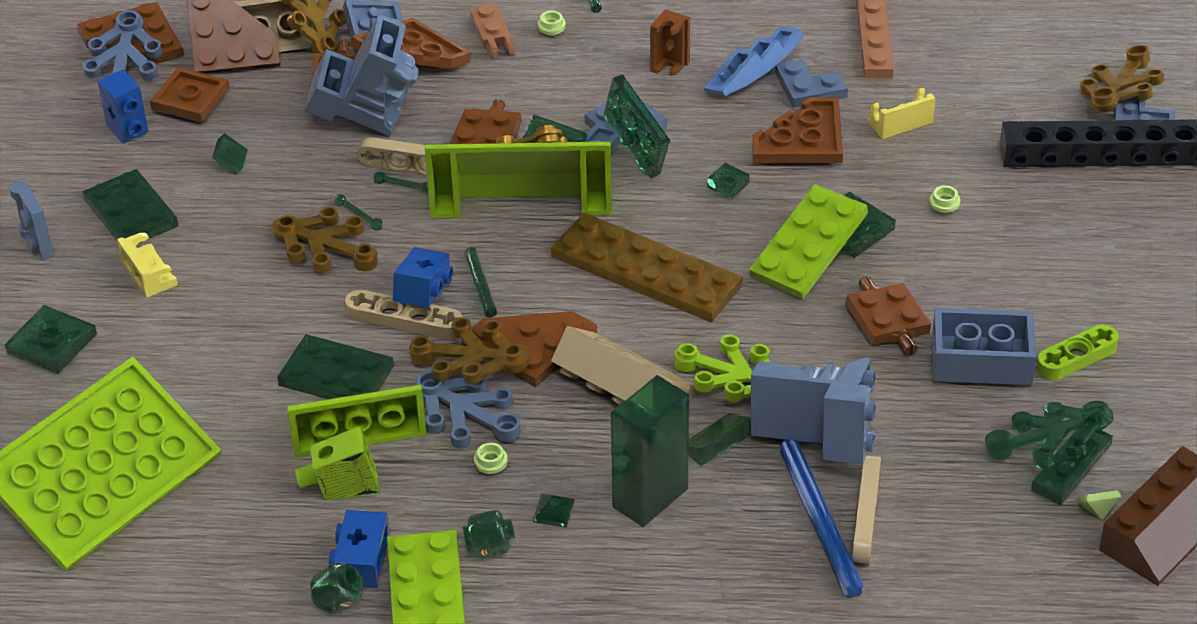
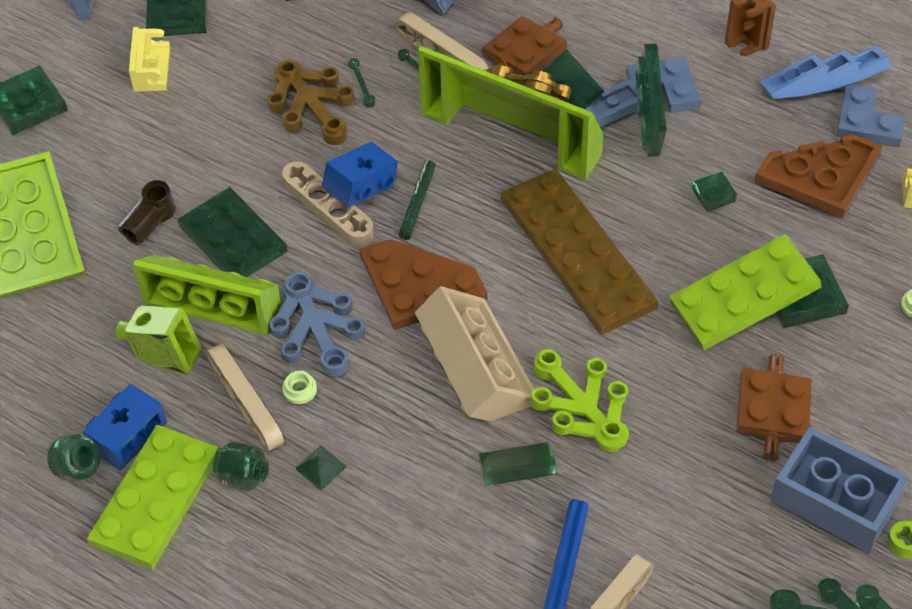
camera: 30 degrees right, 10 degrees up
(247, 380) = (154, 207): none -> dark brown piece
(419, 472) = (245, 397): none -> tan beam
(508, 356) = (378, 293): pearl gold plant -> none
(650, 450) = (414, 457): clear green brick -> none
(816, 406) = (623, 481): sand blue brick -> none

